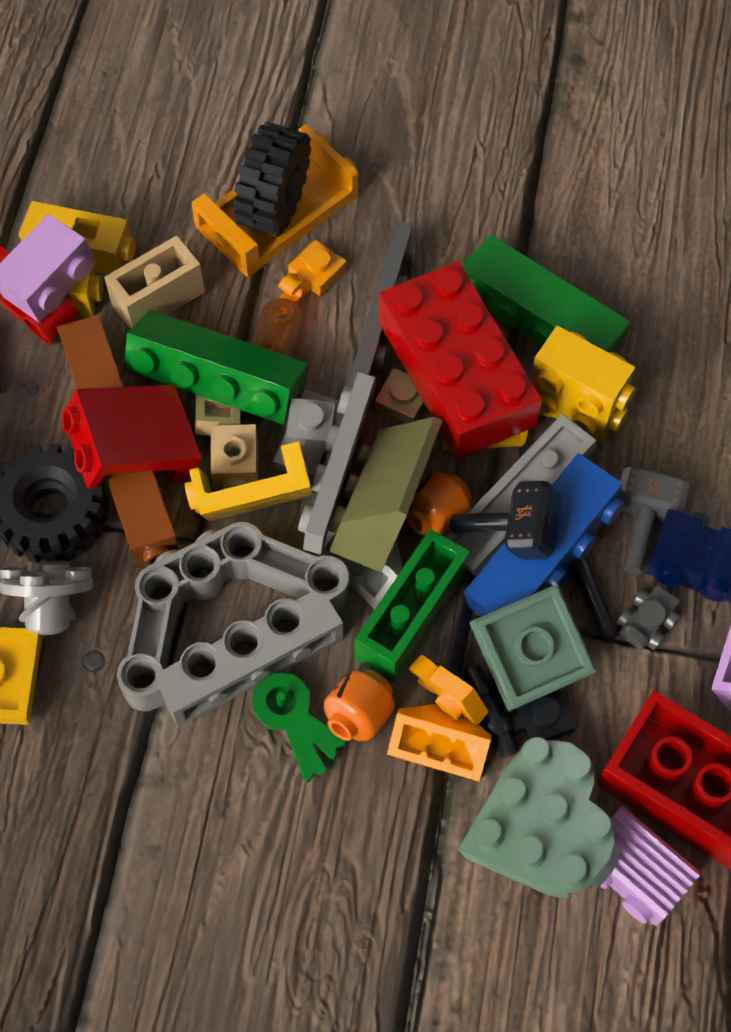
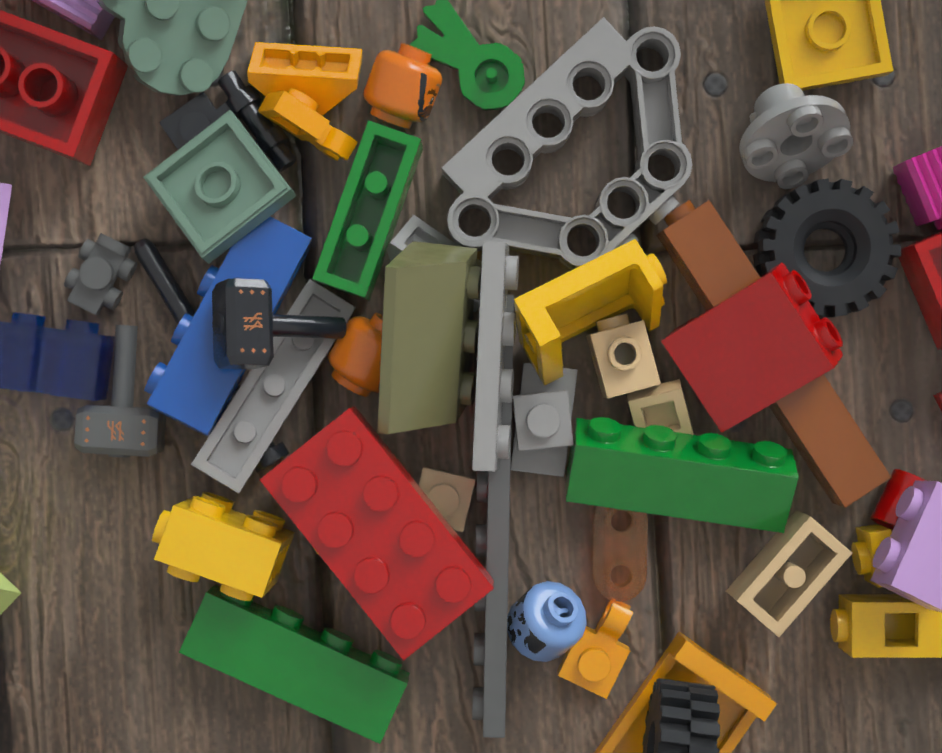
camera: 165 degrees right, 25 degrees up
(344, 291) = (546, 621): none -> medium blue head

